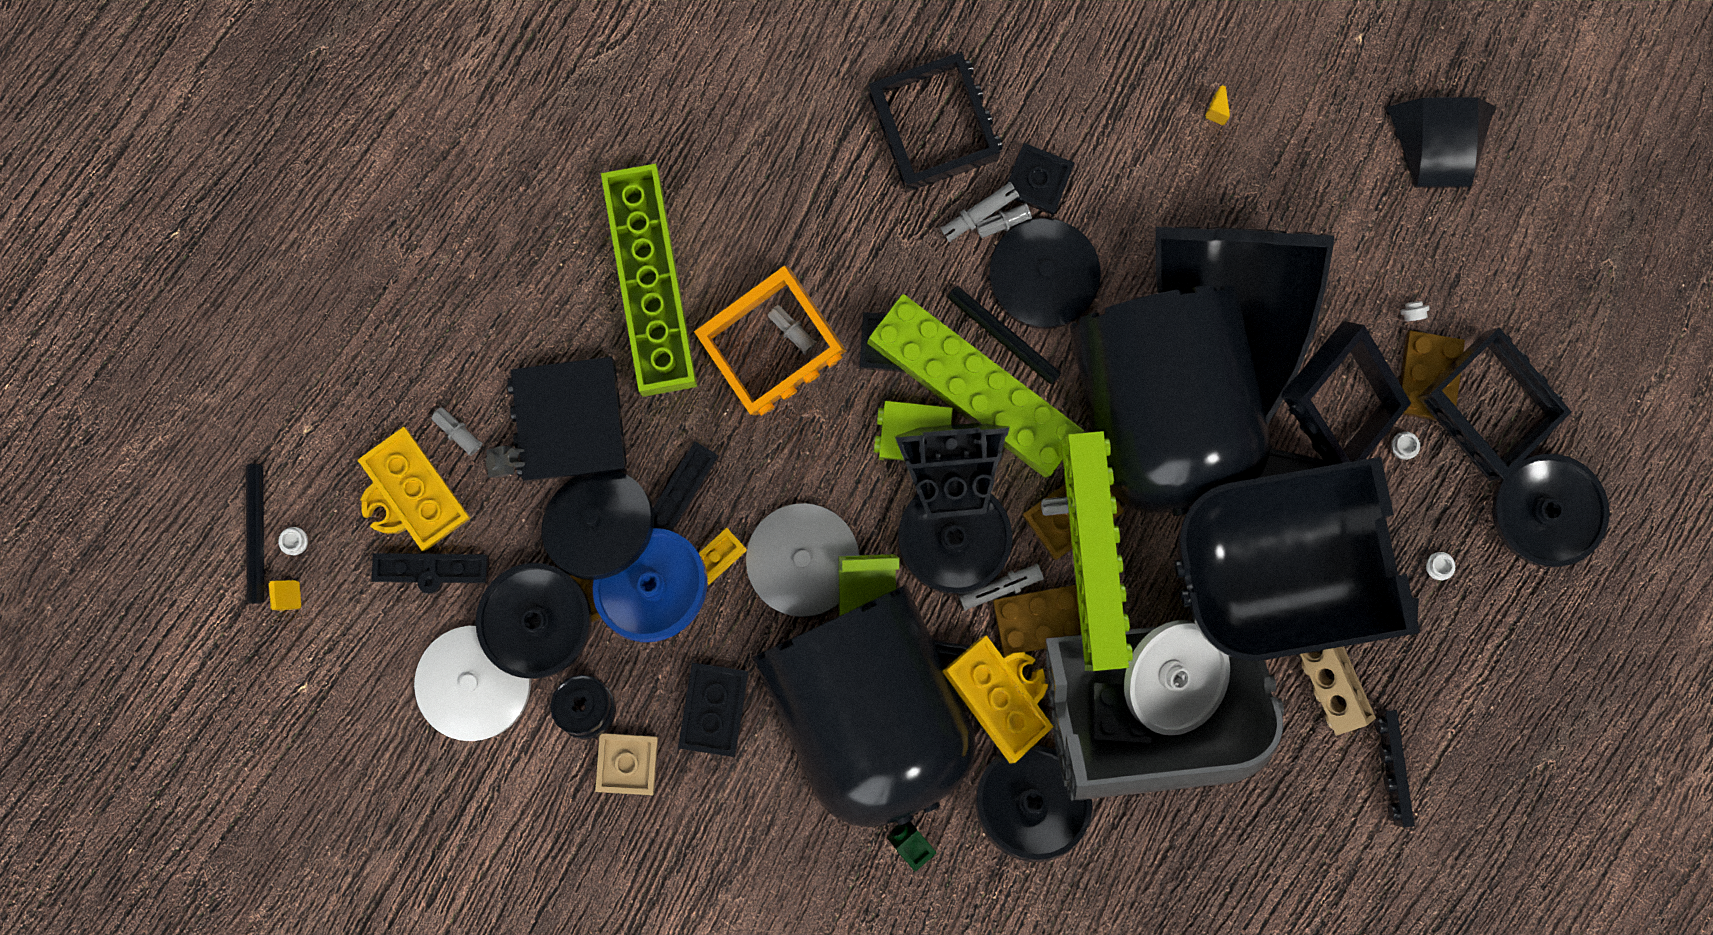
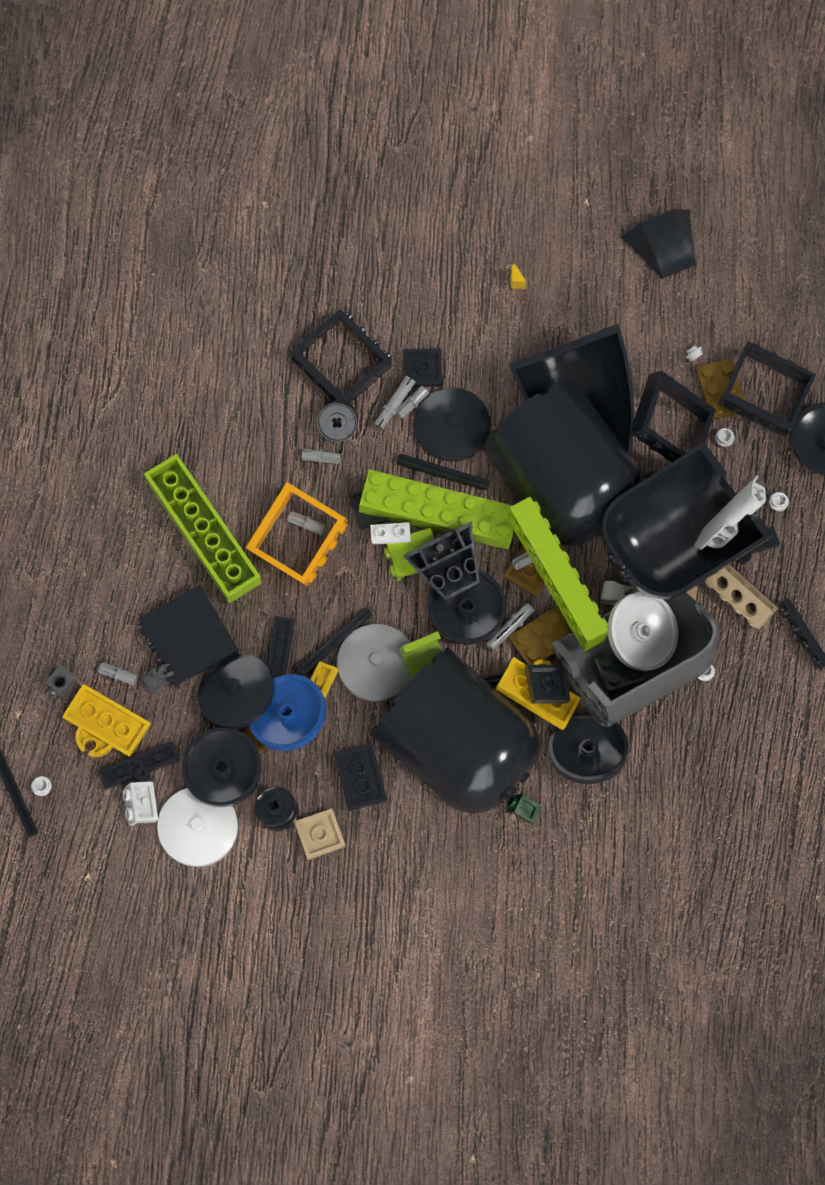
camera: 20 degrees left, 10 degrees down
(285, 595) = (51, 821): yellow slope -> none
(388, 411) = (61, 674): none -> dark grey brick
(410, 620) = (140, 803): none -> white bracket
(757, 508) = (333, 642): none -> black axle
(849, 245) = (320, 456): none -> light grey axle
(895, 191) = (337, 409): none -> wheel
(895, 393) = (390, 533): none -> white bracket
(1015, 694) = (547, 684): none -> black plate
(1163, 602) = (613, 592): none -> white piece
(1357, 580) = (724, 524): none -> white panel

